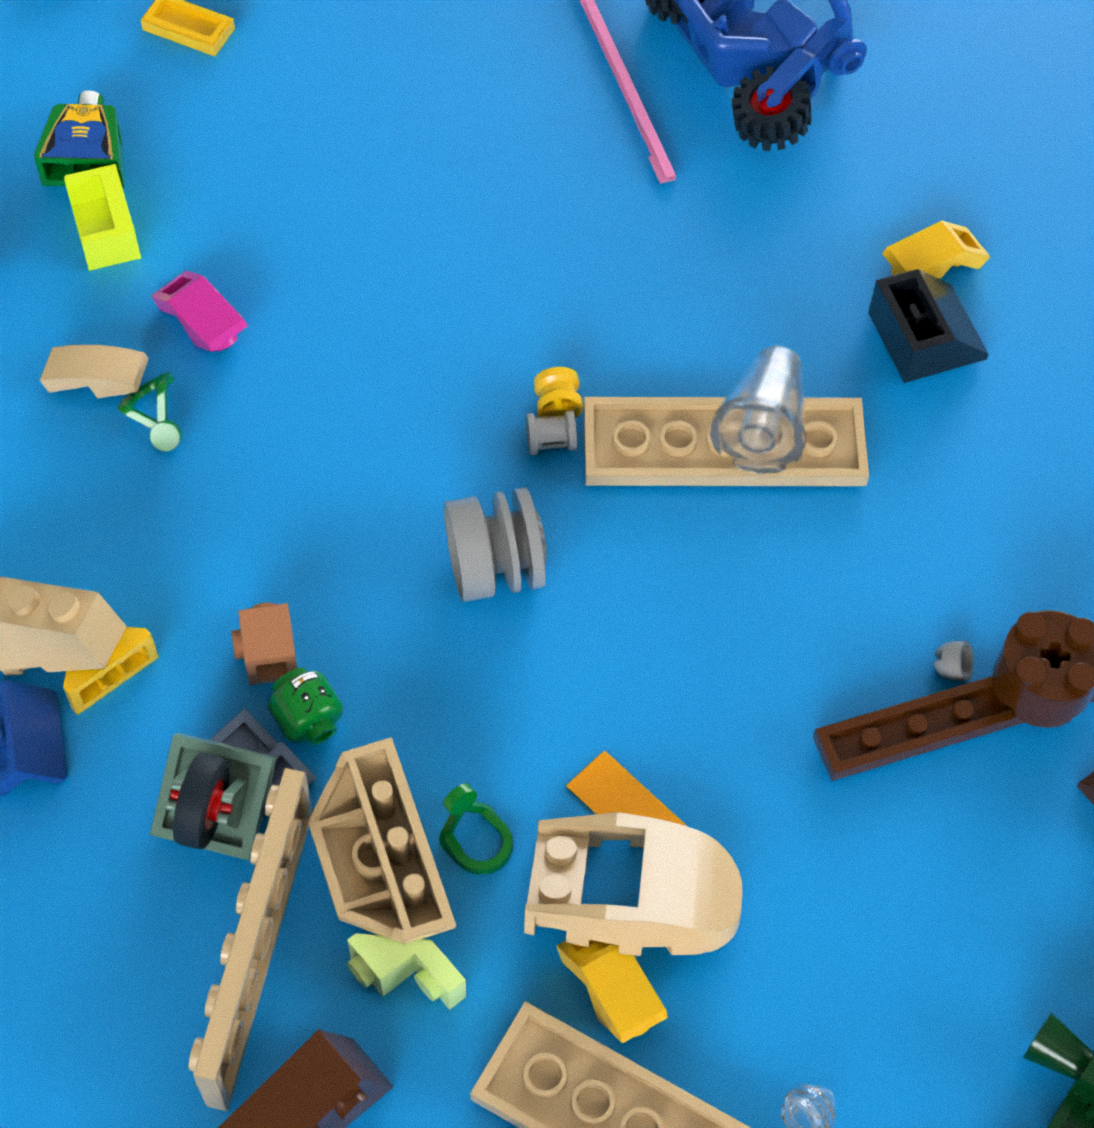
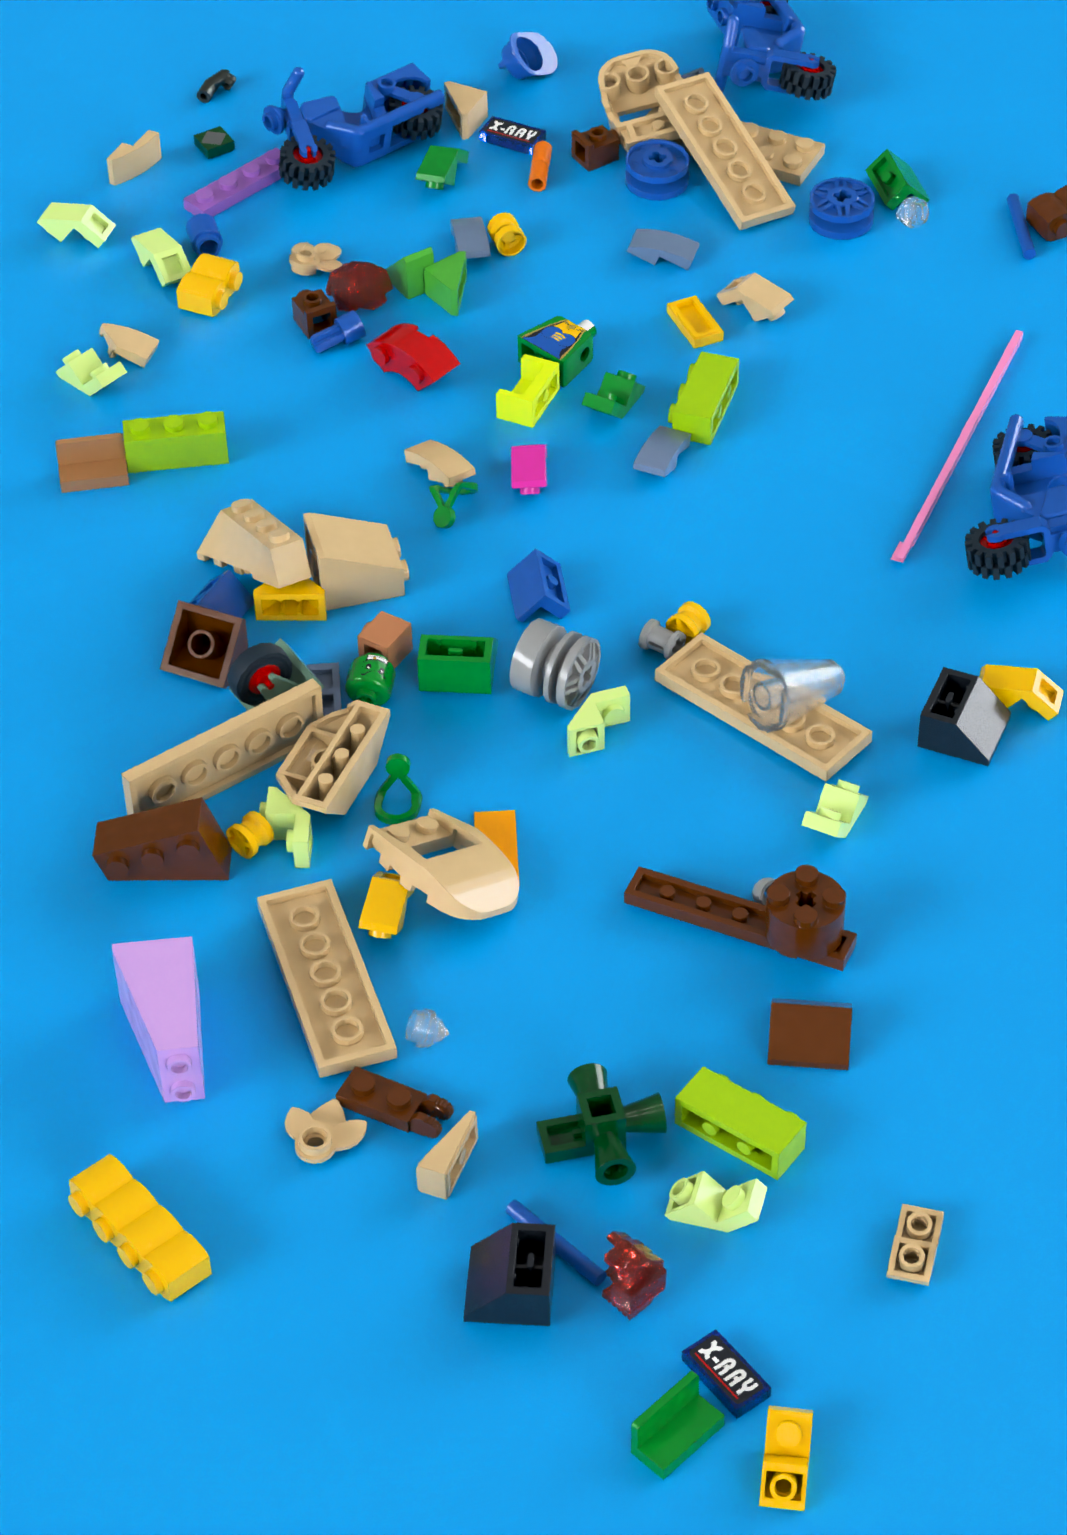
camera: 45 degrees right, 15 degrees down
(69, 801) = (204, 644): none -> reddish brown slope
(135, 561) = (353, 560): none -> tan slope
(198, 163) = (615, 395): none -> green slope
(298, 110) = (705, 396): none -> lime brick
(316, 202) = (661, 451): none -> sand blue slope
(356, 457) = (536, 584): none -> blue panel
(374, 610) = (456, 663): none -> green slope
(374, 1013) = (250, 834): none -> yellow wheel
(589, 589) = (599, 711): none -> yellowish green slope
(914, 515) = (836, 809): none -> yellowish green slope

